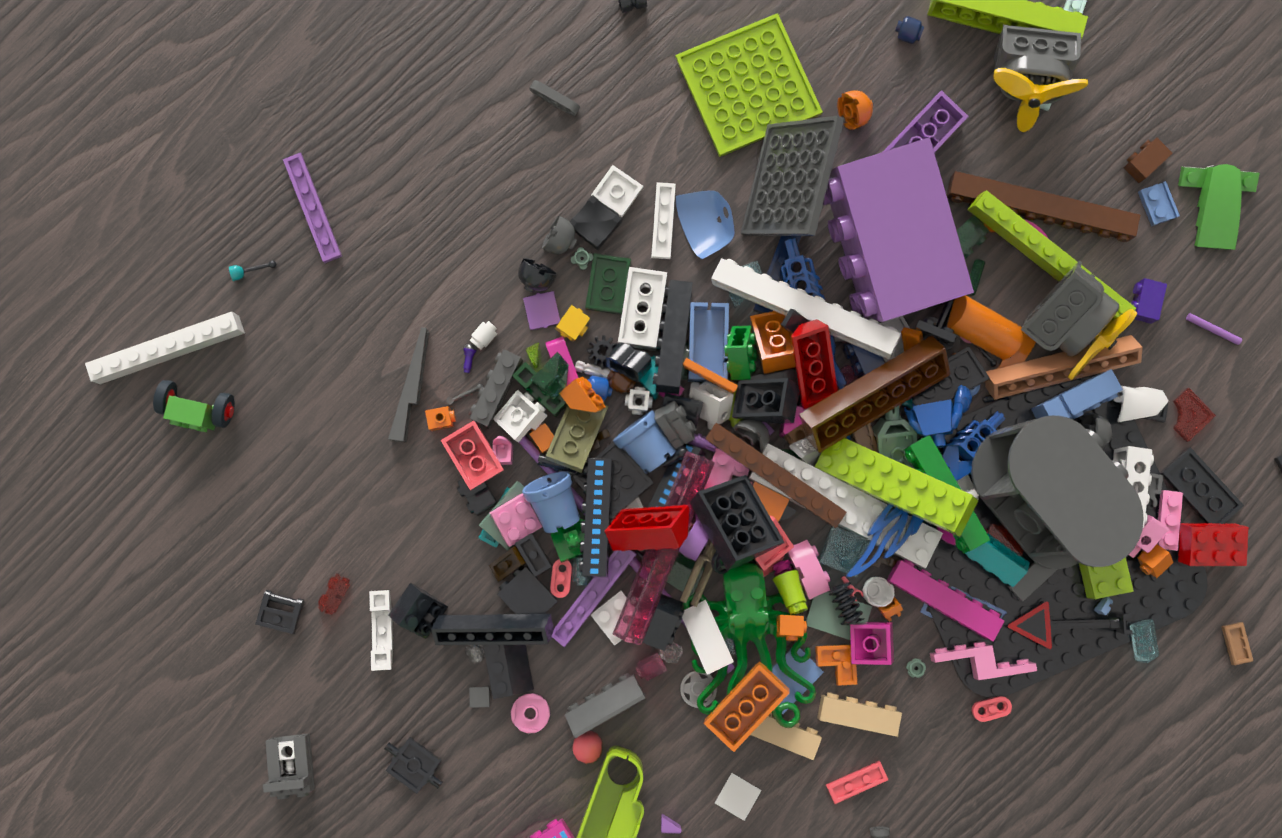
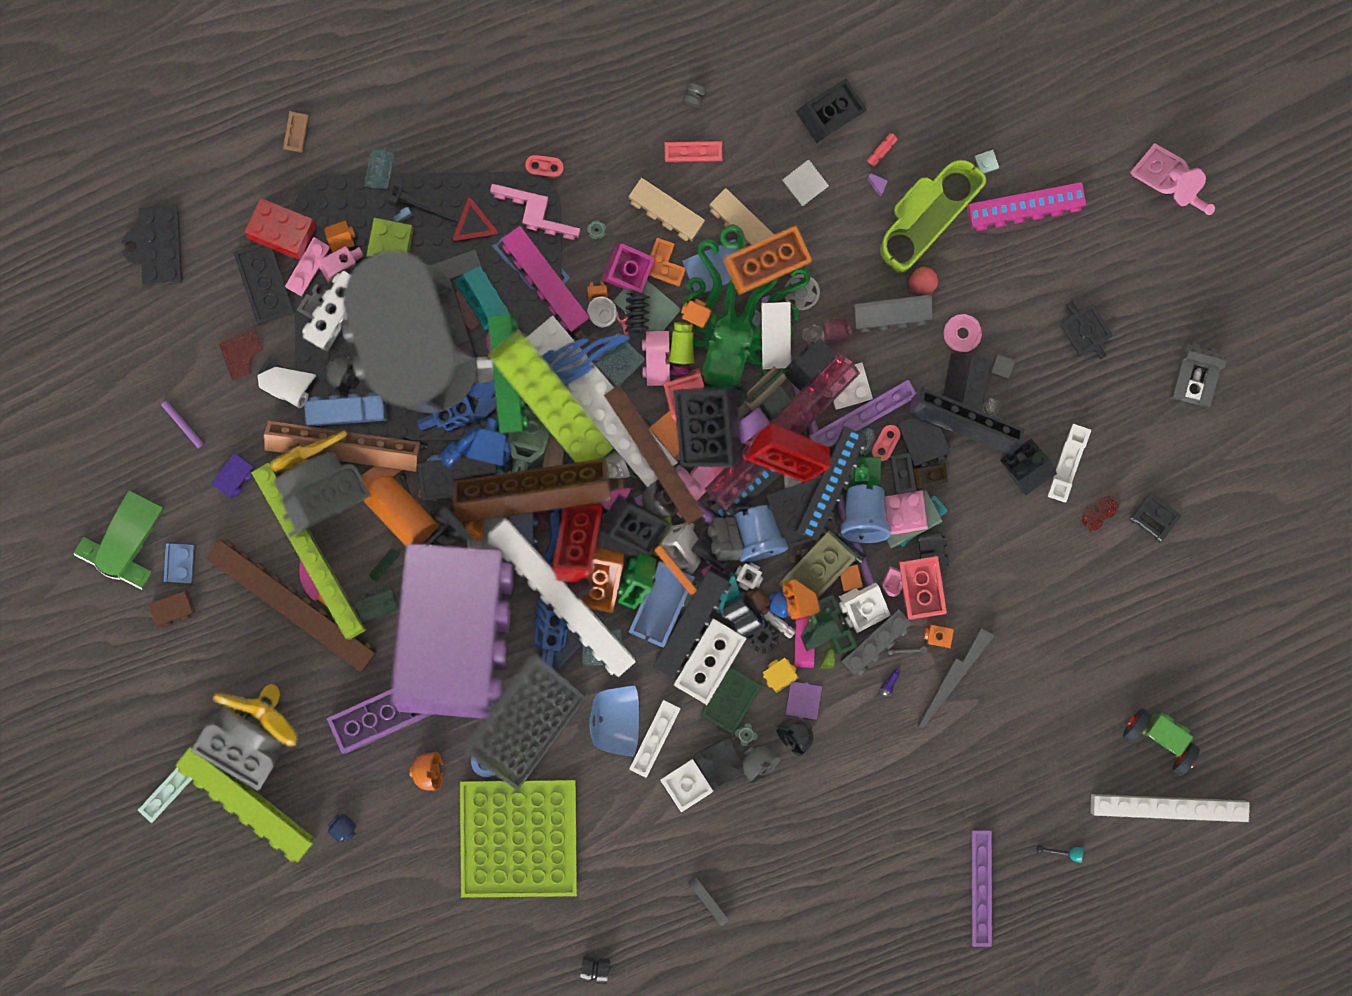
camera: 155 degrees left, 5 degrees up
(483, 335) = (867, 698): white brick -> none

